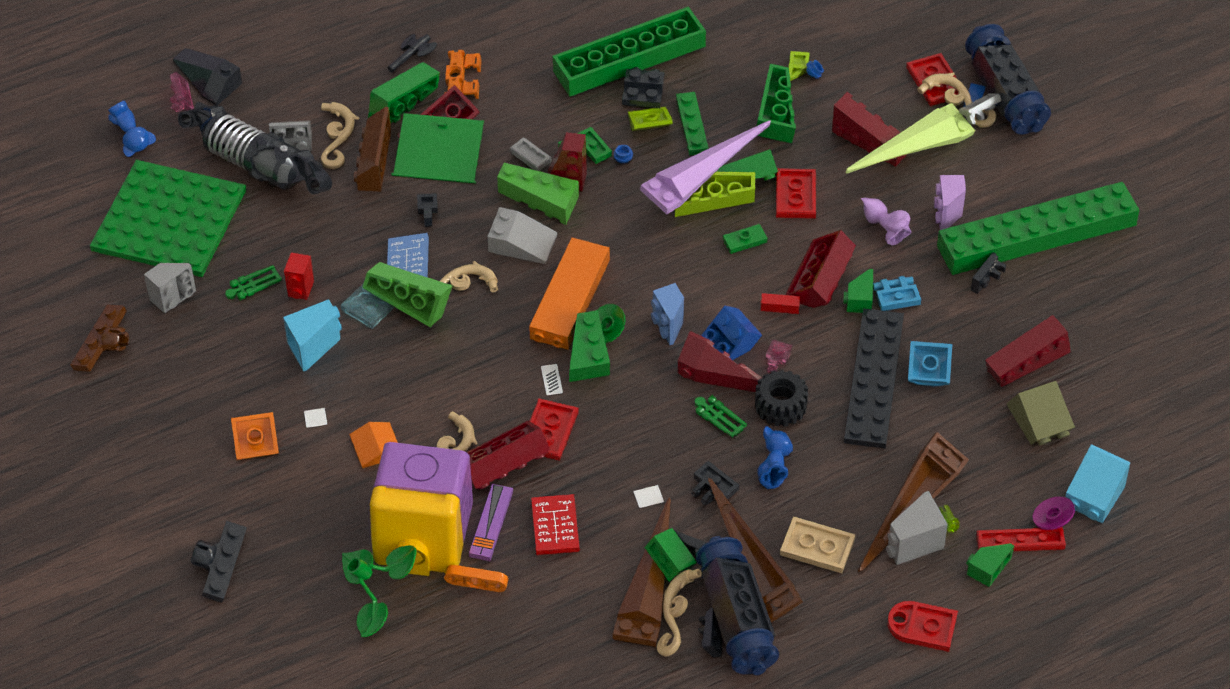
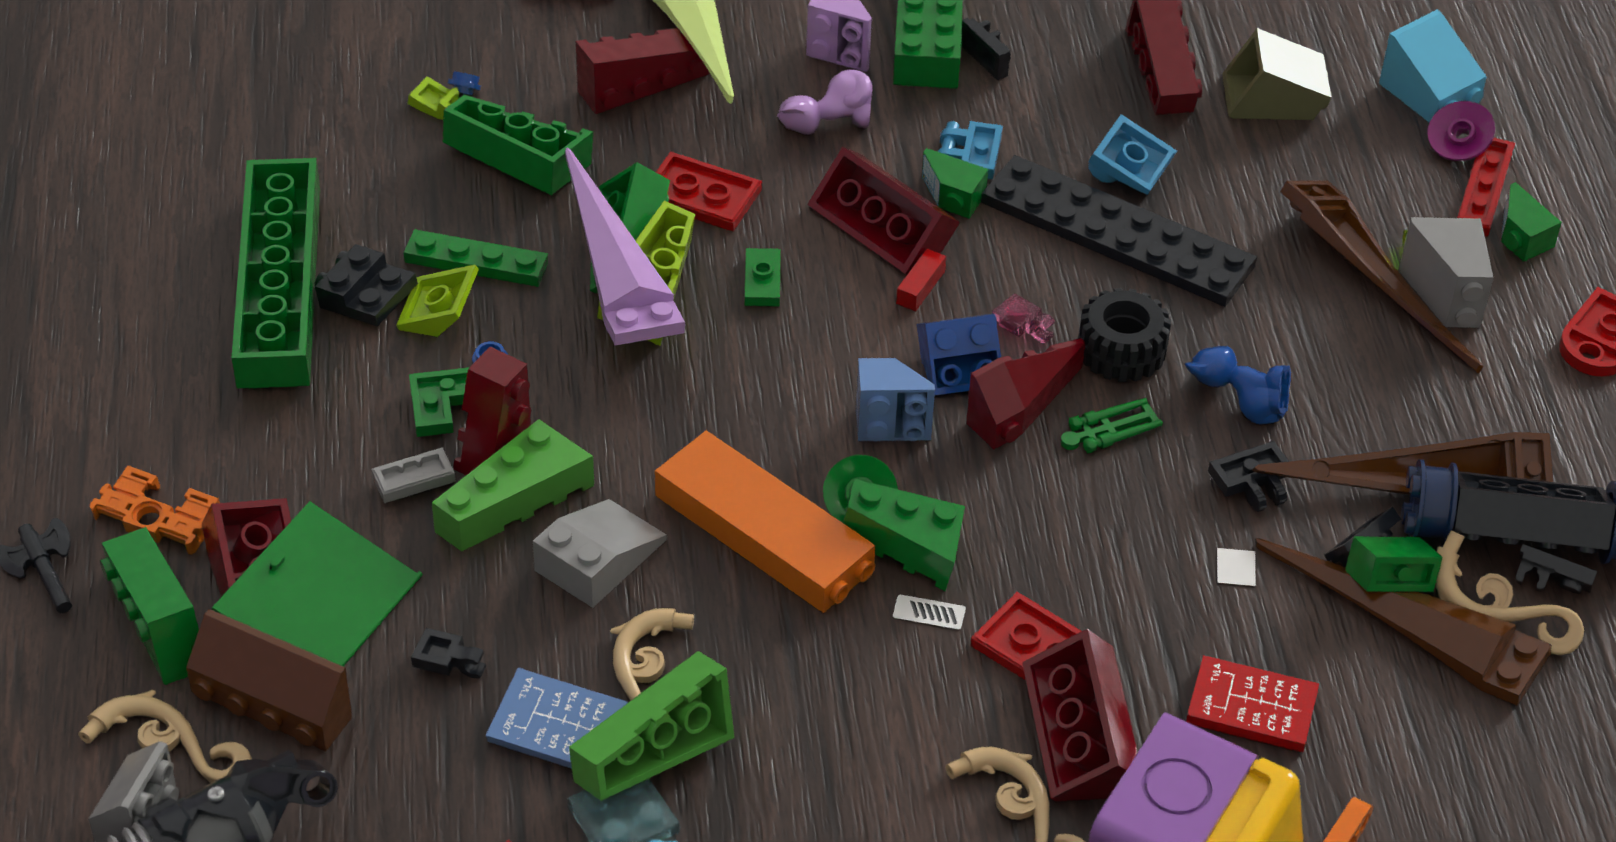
camera: 70 degrees left, 5 degrees down
(817, 544) = (1421, 394): tan plate -> none

